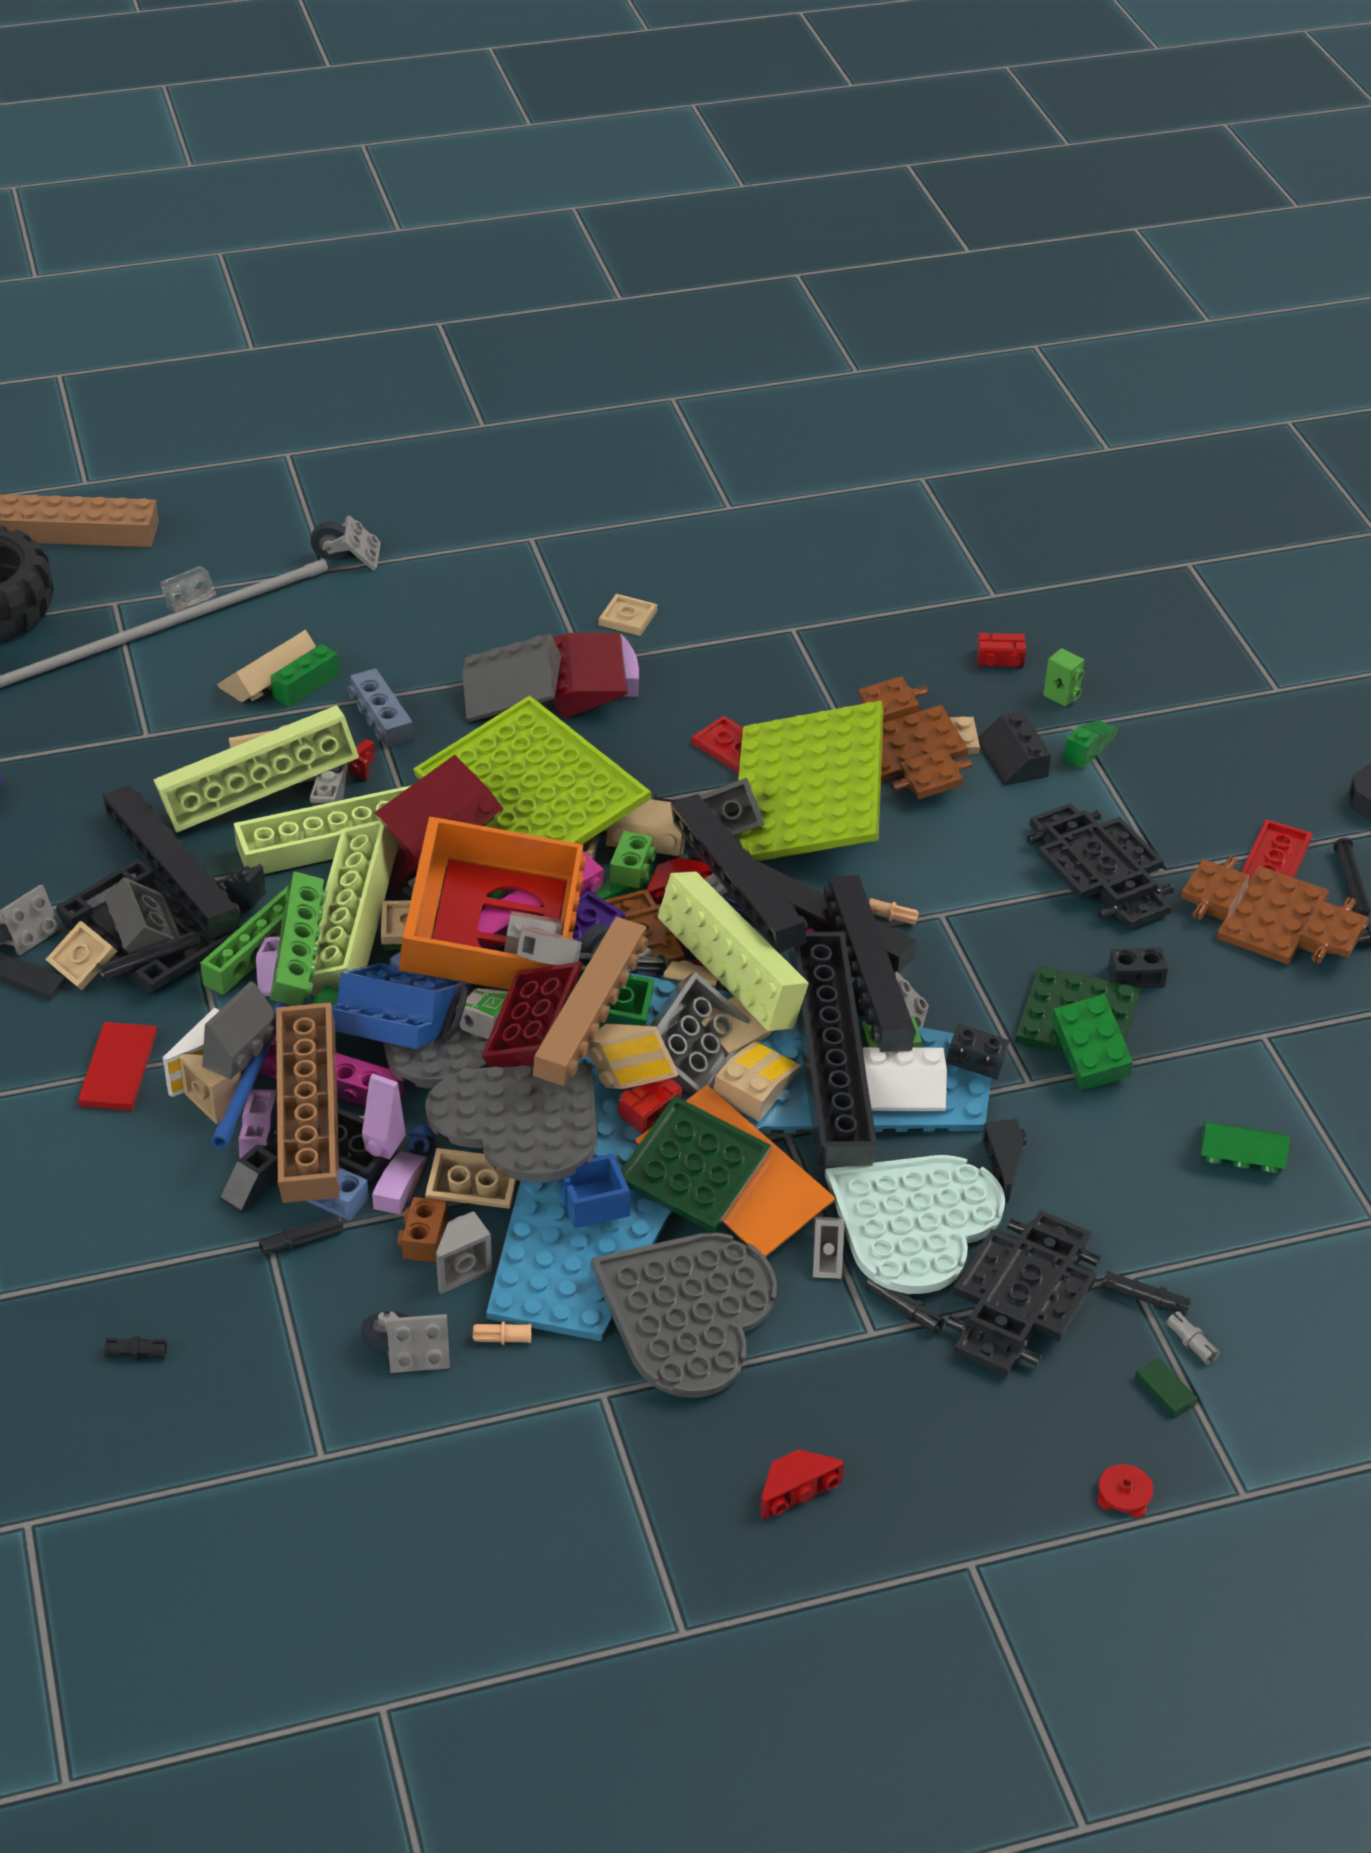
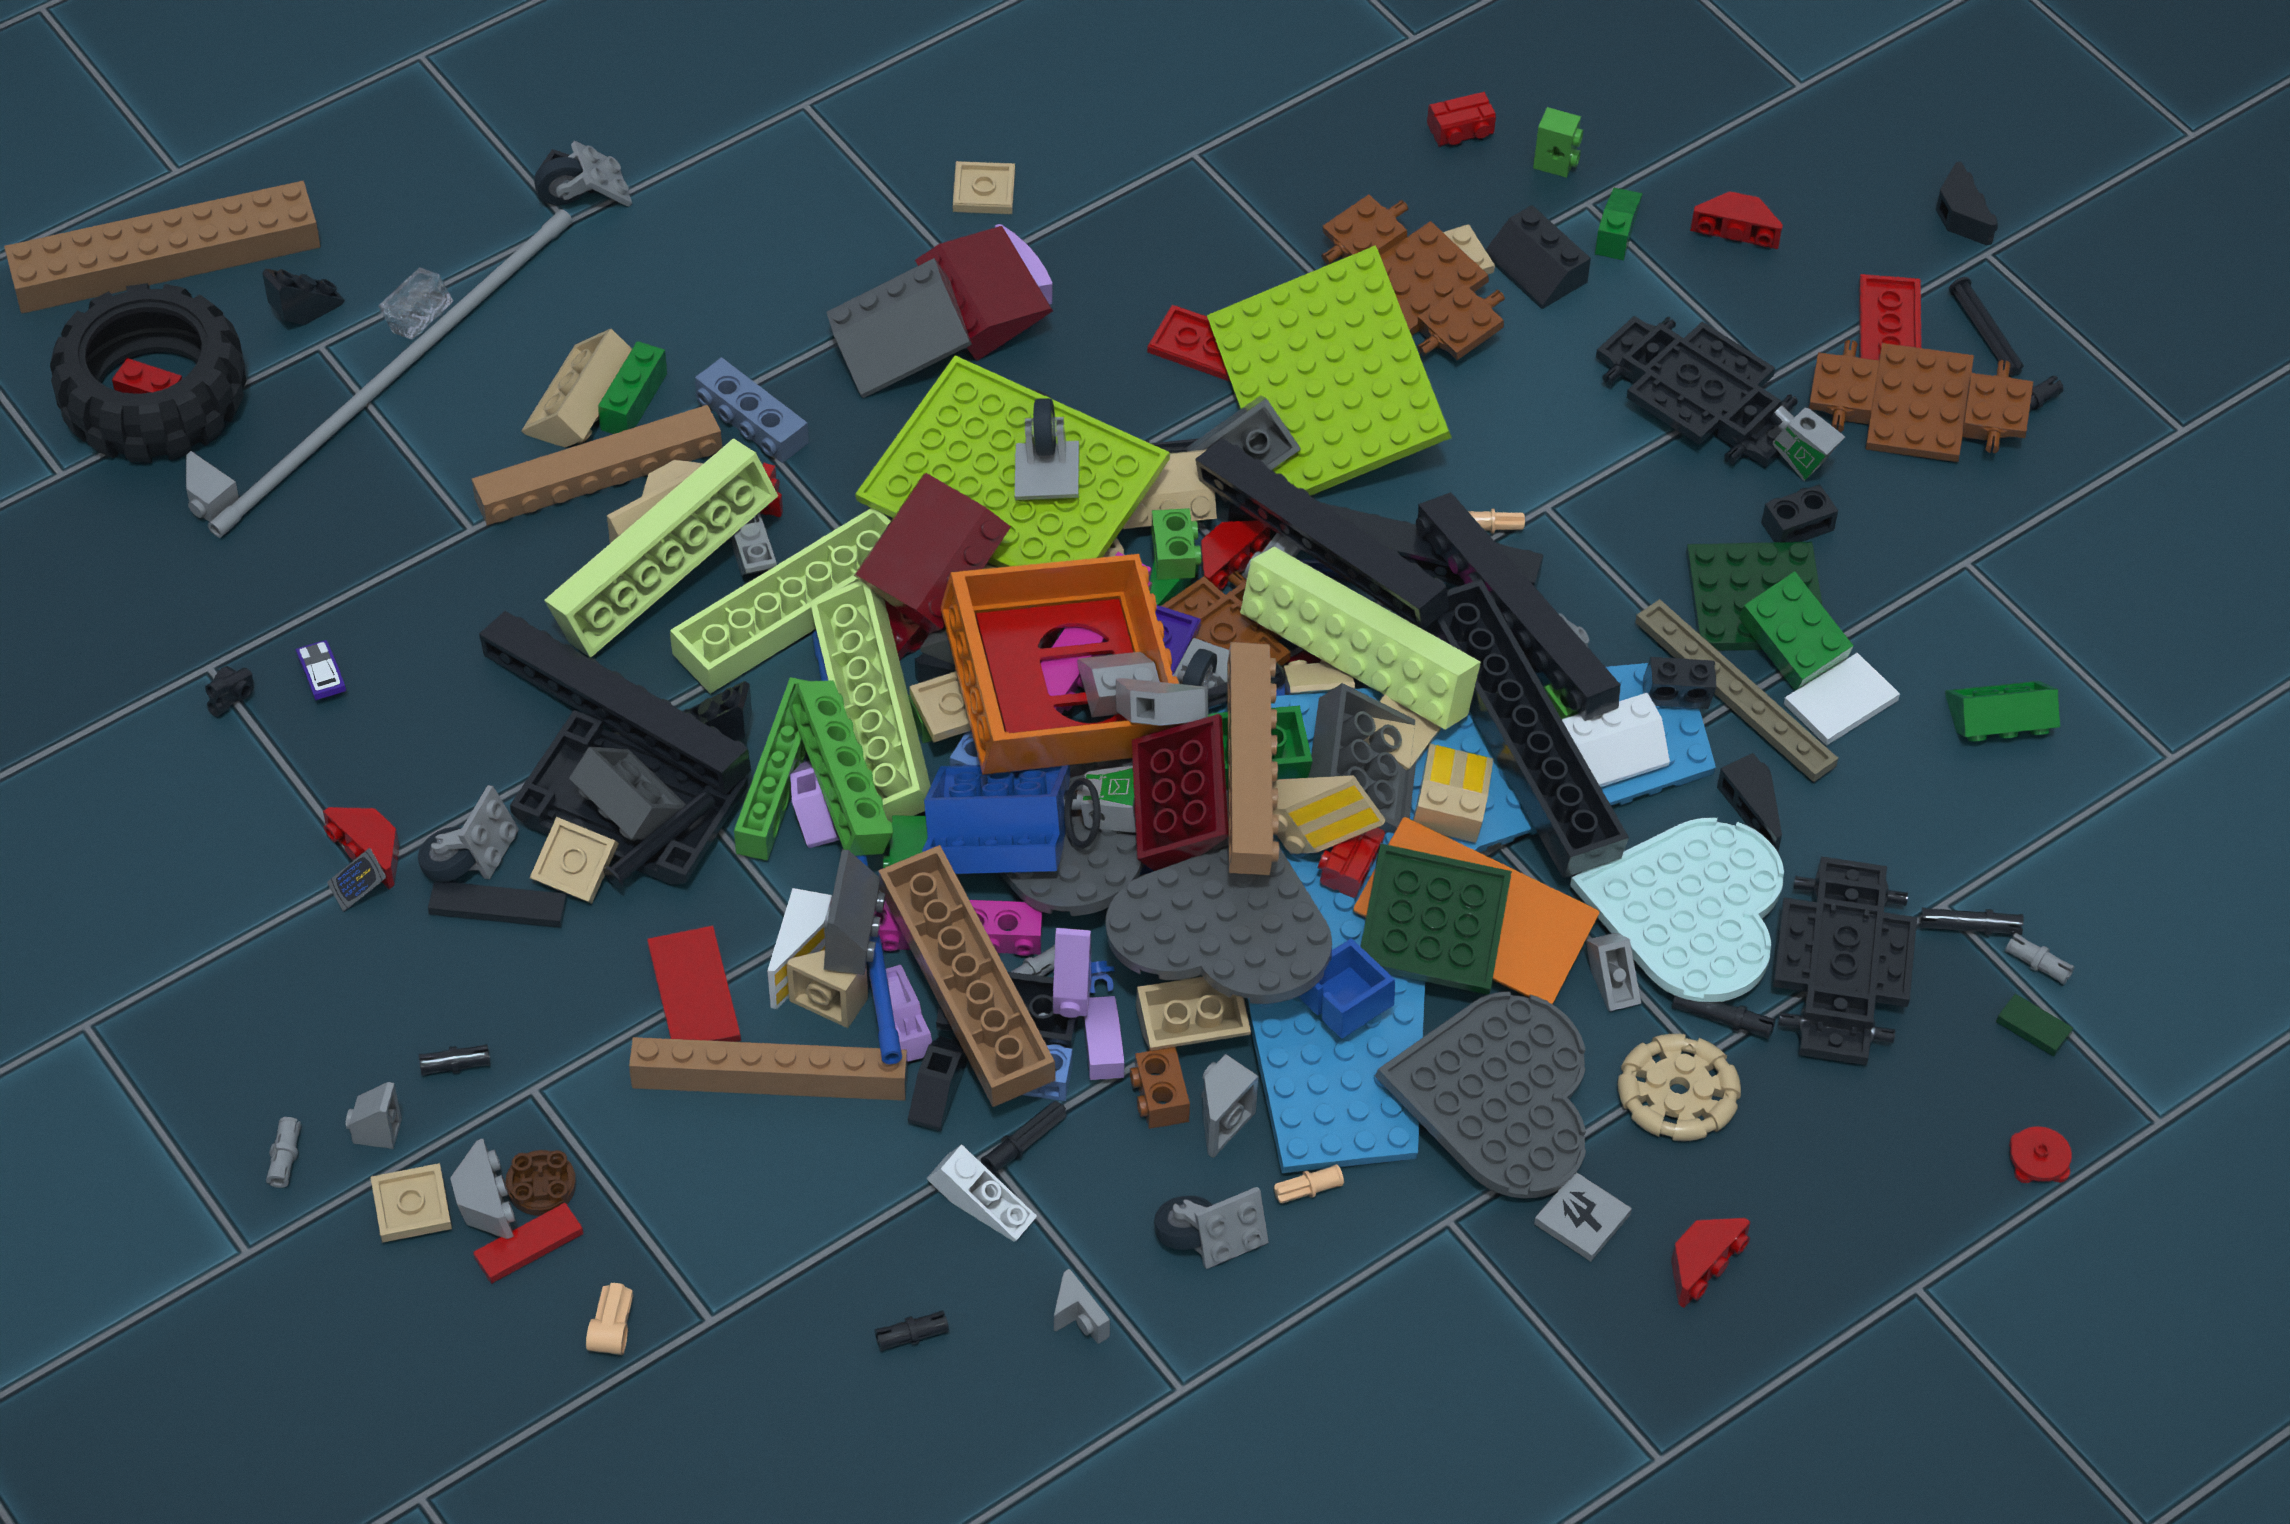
camera: 20 degrees left, 10 degrees up
(113, 567) = (300, 297): none -> black slope
(134, 1131) = (766, 1069): none -> medium nougat brick
(241, 714) = (596, 465): none -> medium nougat brick
(243, 1264) = (980, 1193): none -> white slope
(267, 1367) = (1077, 1304): none -> light grey slope
(557, 773) = (1043, 466): none -> light grey plate
(712, 1423) = (1583, 1216): none -> light grey tile
(841, 1334) = (1682, 1070): none -> tan plate
(1031, 1078) = (1740, 692): none -> dark tan plate
(1113, 1104) = (1841, 699): none -> white tile
(1163, 914) = (1804, 440): none -> light grey torso
(1183, 760) = (1738, 219): none -> red slope

